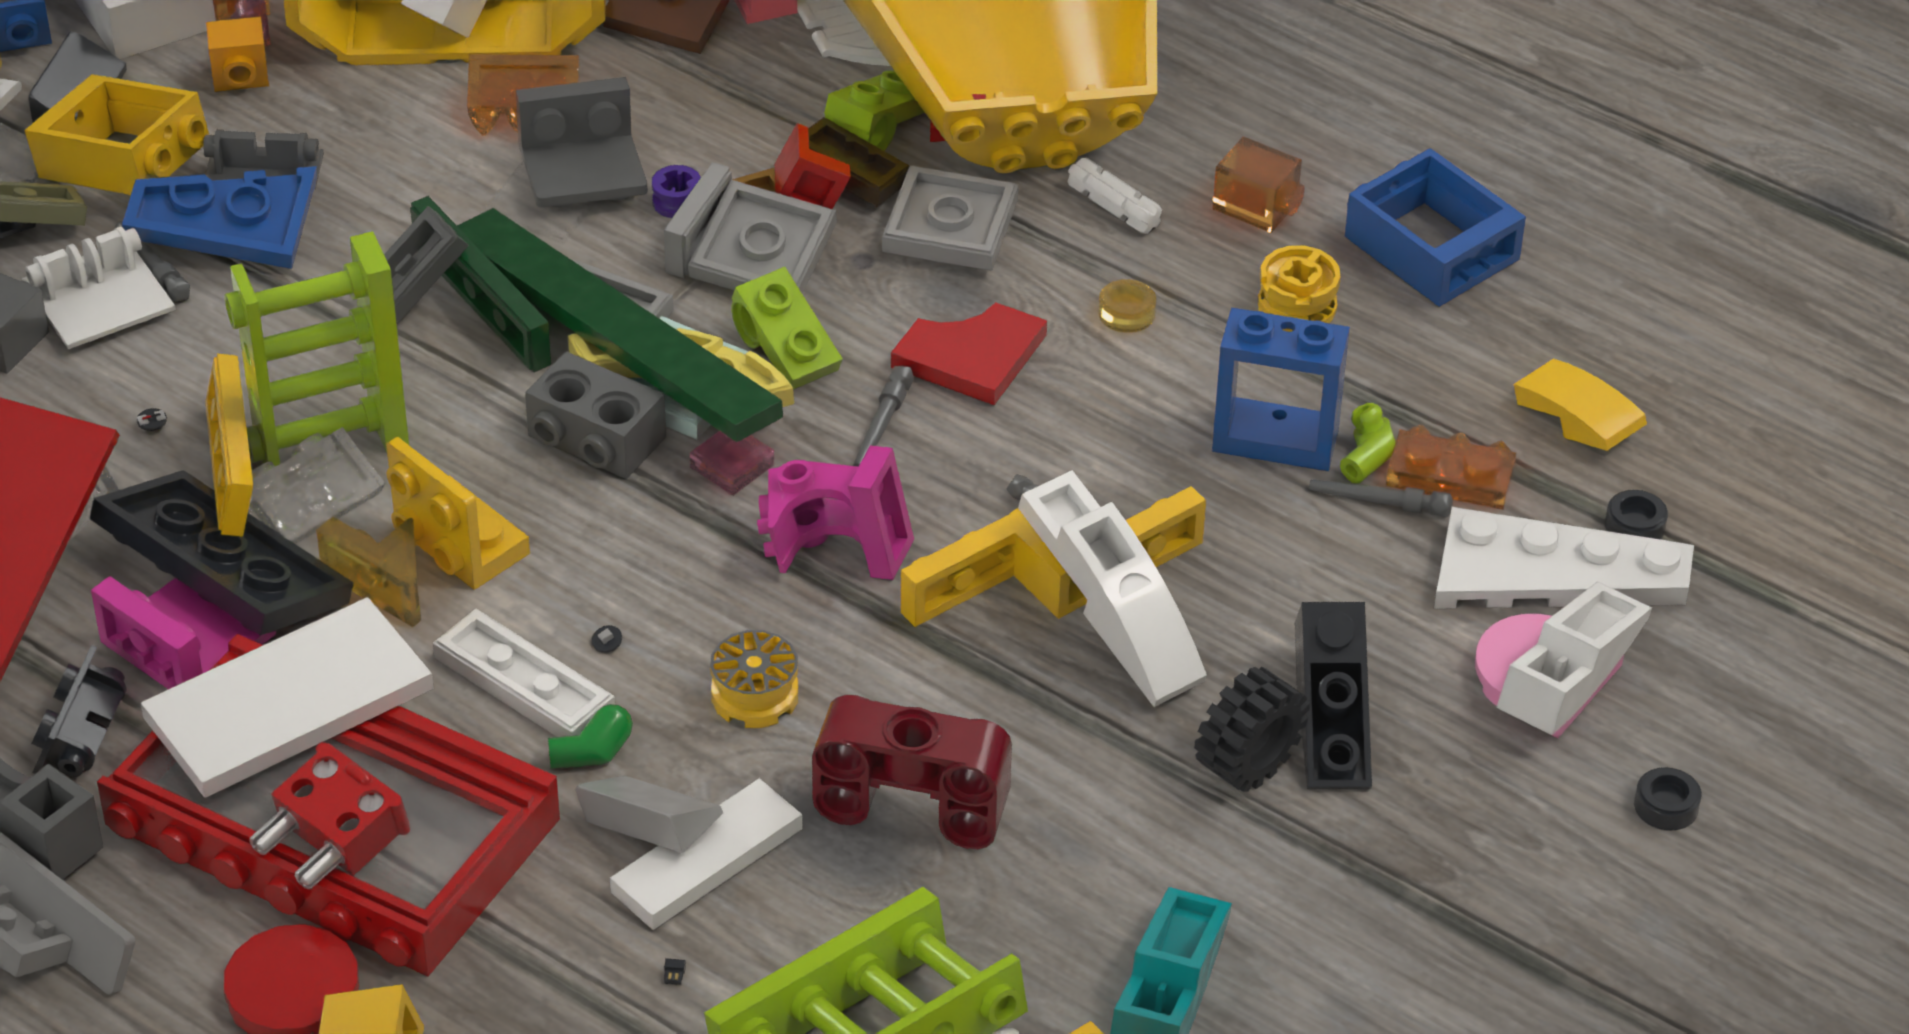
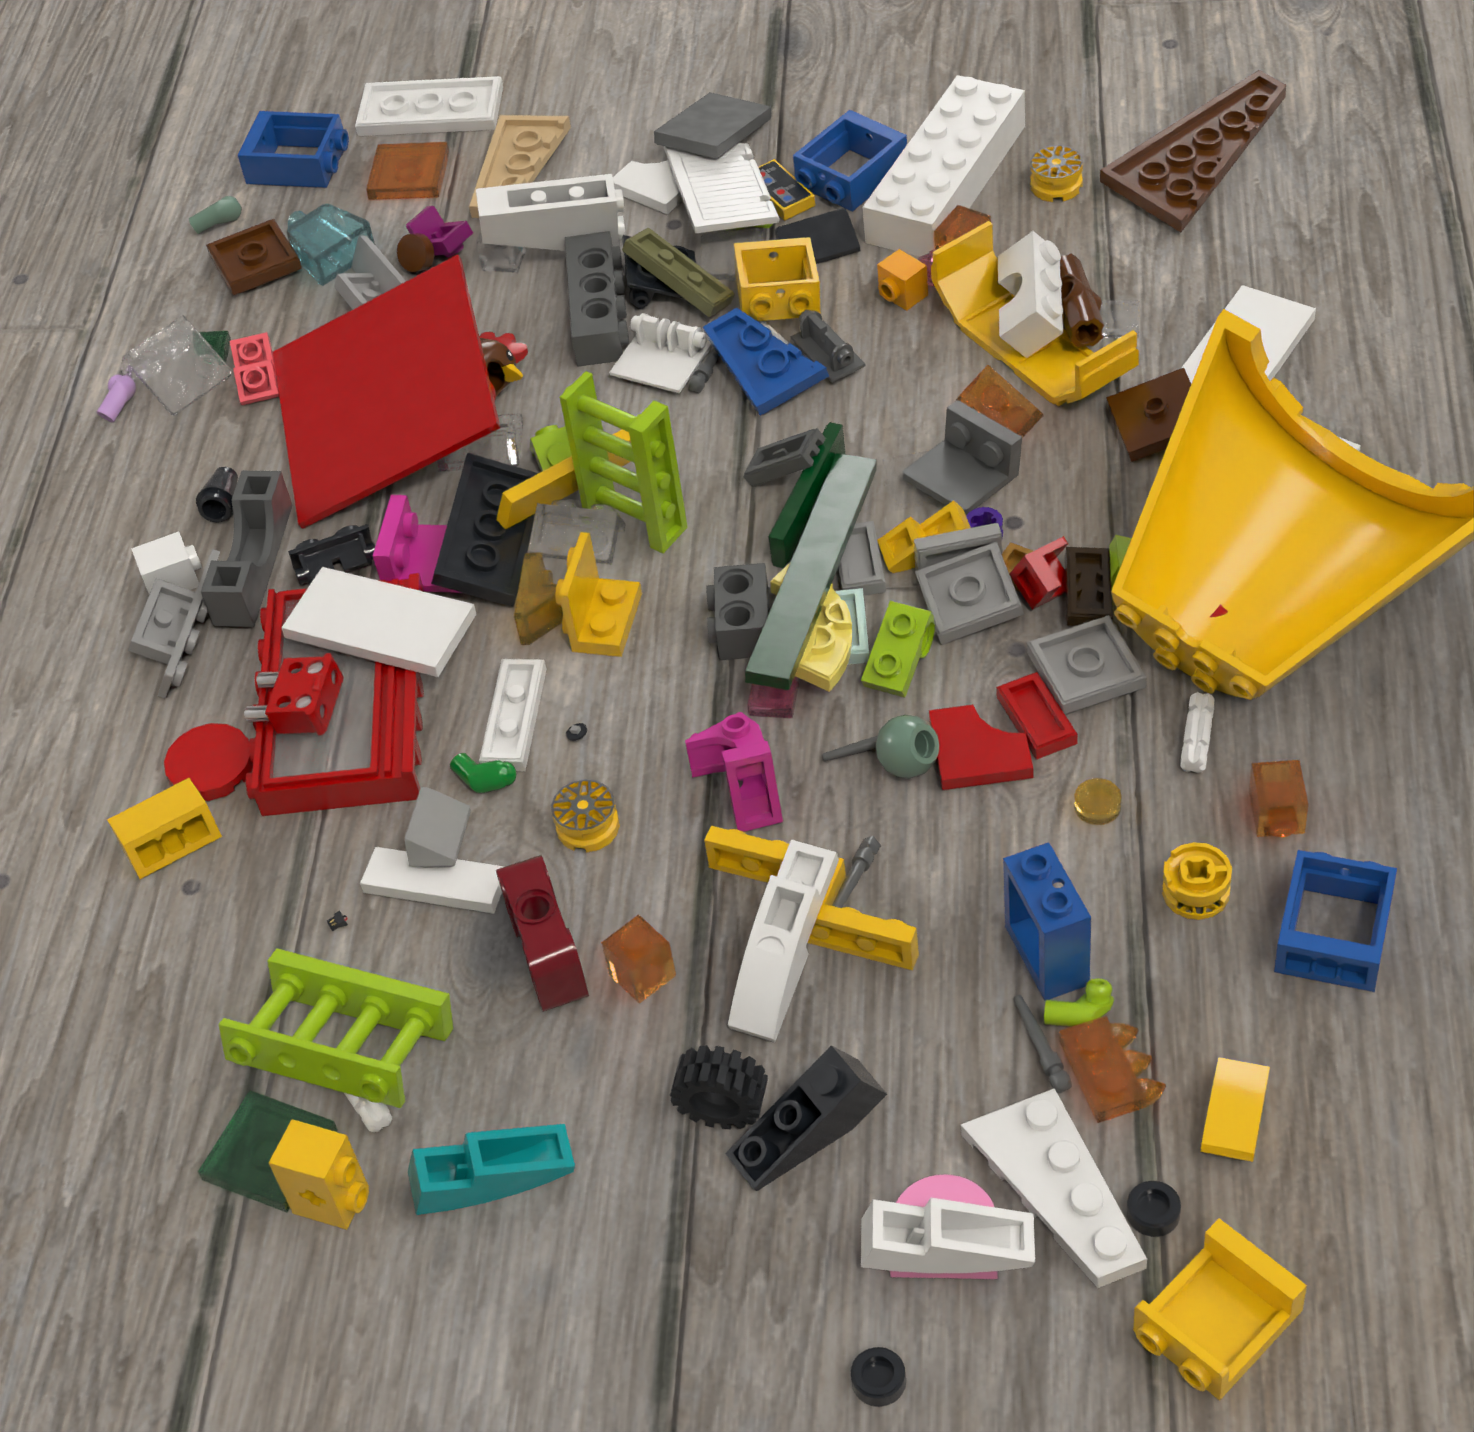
camera: 65 degrees right, 5 degrees up
(156, 443) = (550, 446): none -> lime bracket
(638, 243) = (898, 543): none -> yellow slope
(933, 385) = (907, 746): none -> sand green piece
(969, 286) = (1037, 715): none -> red tile
(1020, 708) = (639, 958): none -> clear orange brick
(1784, 526) = (1220, 1311): none -> yellow panel

